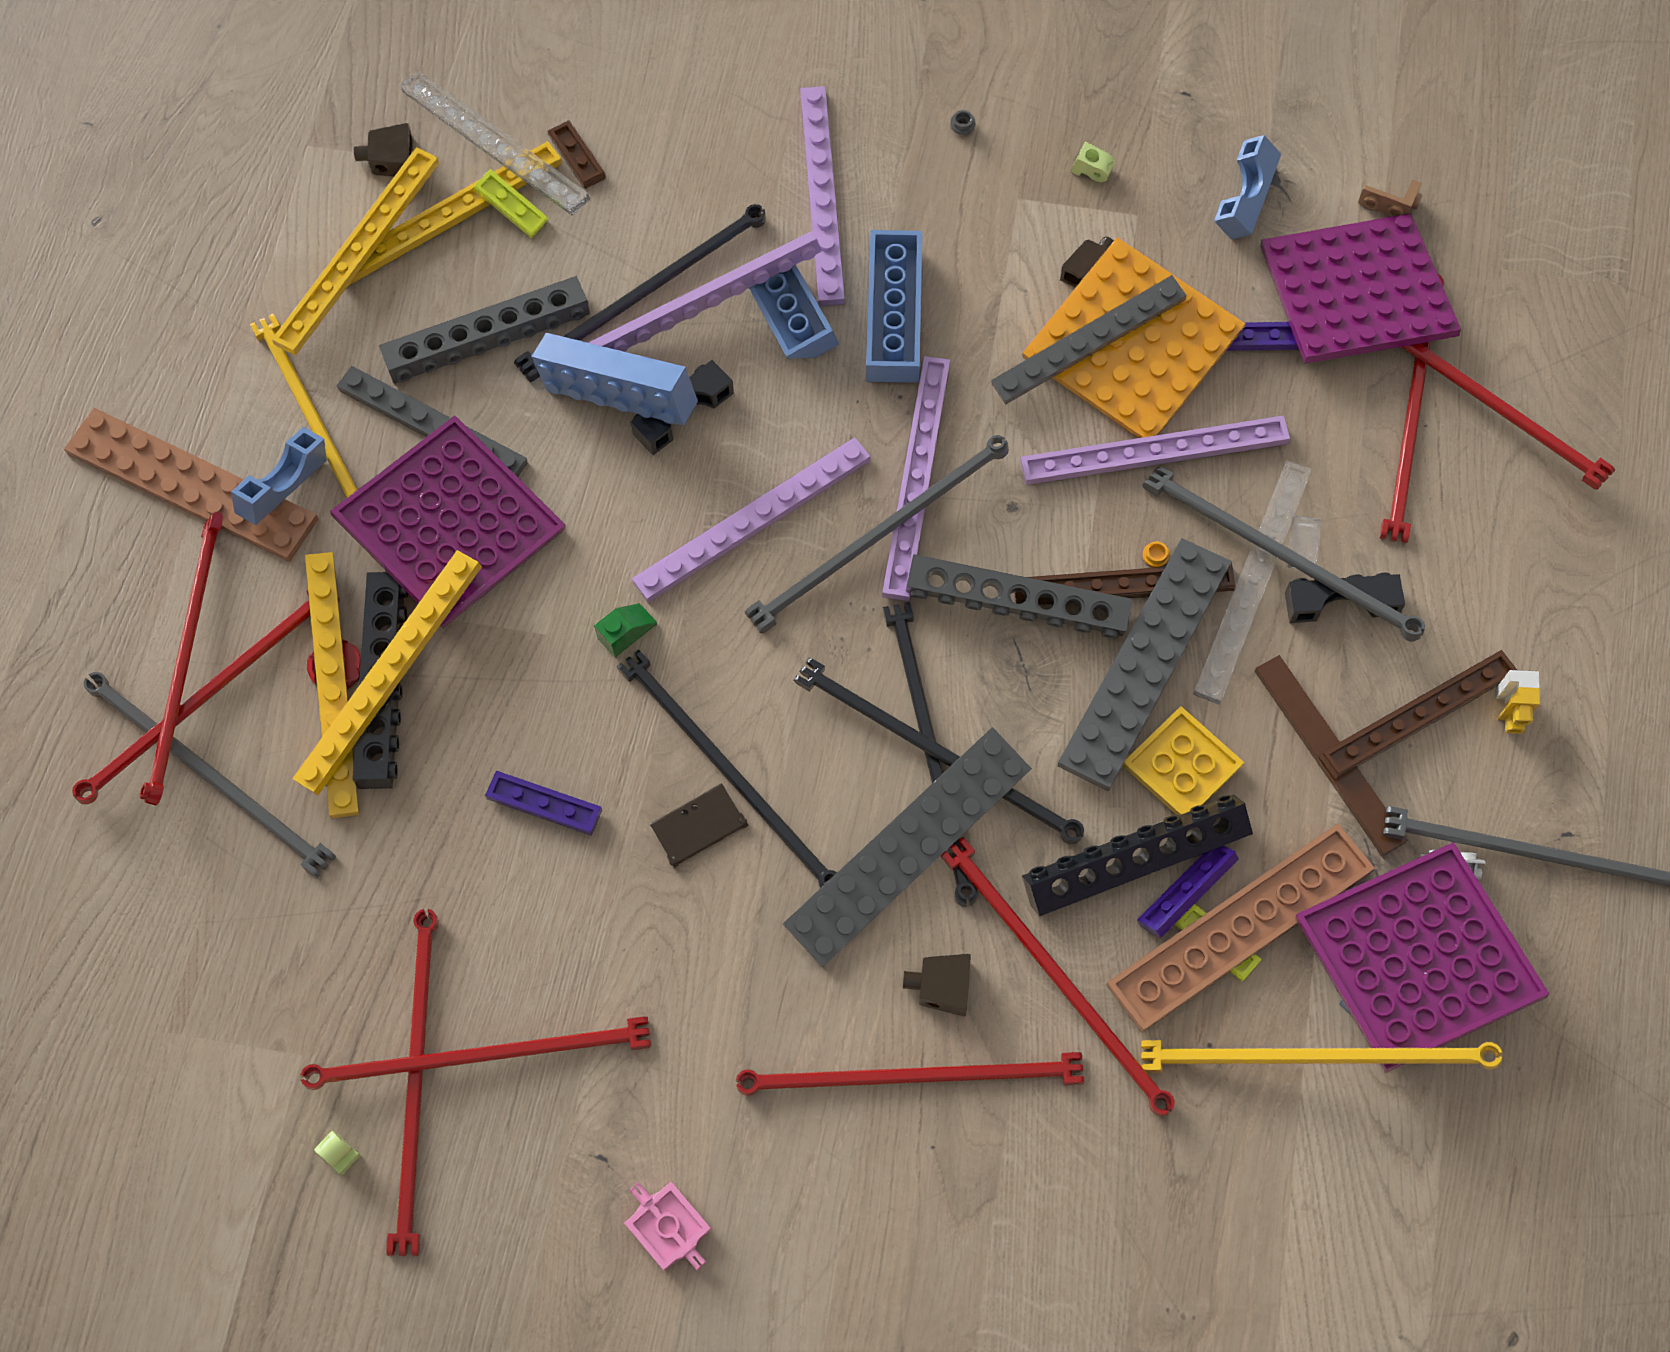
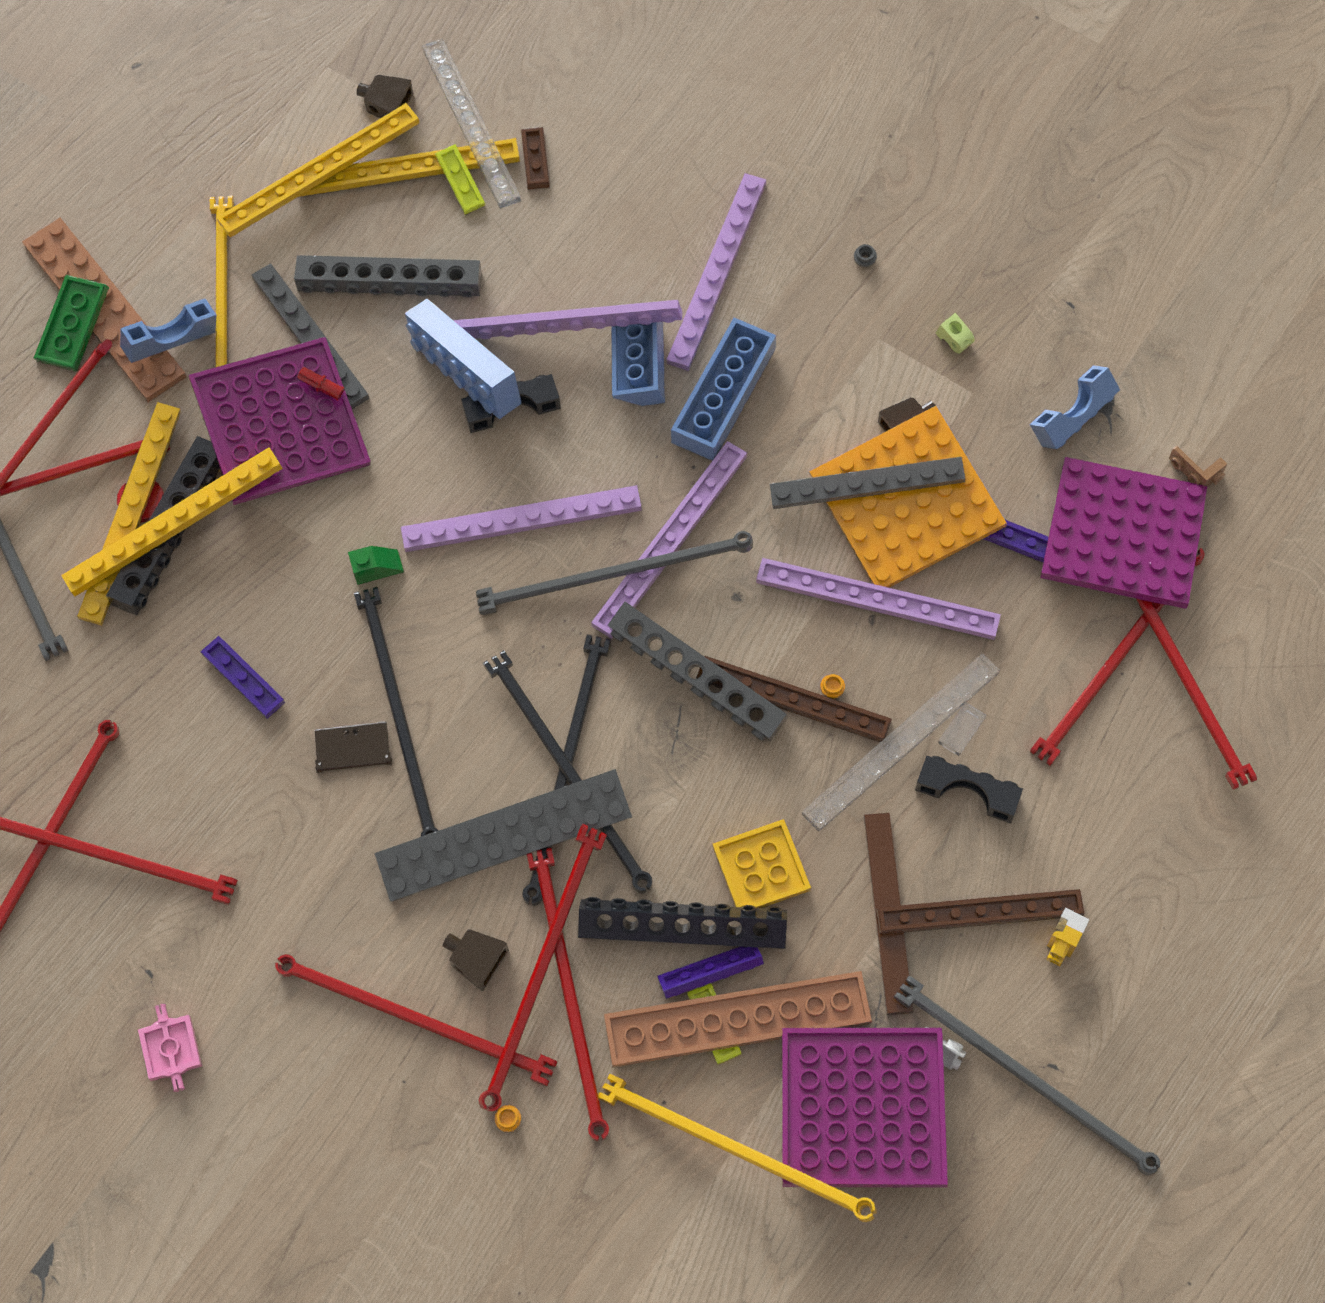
camera: 25 degrees right, 0 degrees up
(164, 511) = (71, 323): none -> green tile
(475, 464) = (321, 383): none -> red axle
(525, 360) = (548, 289): black hinge -> none
(1004, 811) = (541, 965): none -> red hinge
(1062, 1135) = (507, 1118): none -> light orange plate
(1144, 665) = (772, 771): dark grey plate -> none
(1162, 481) = (972, 788): dark grey hinge -> none

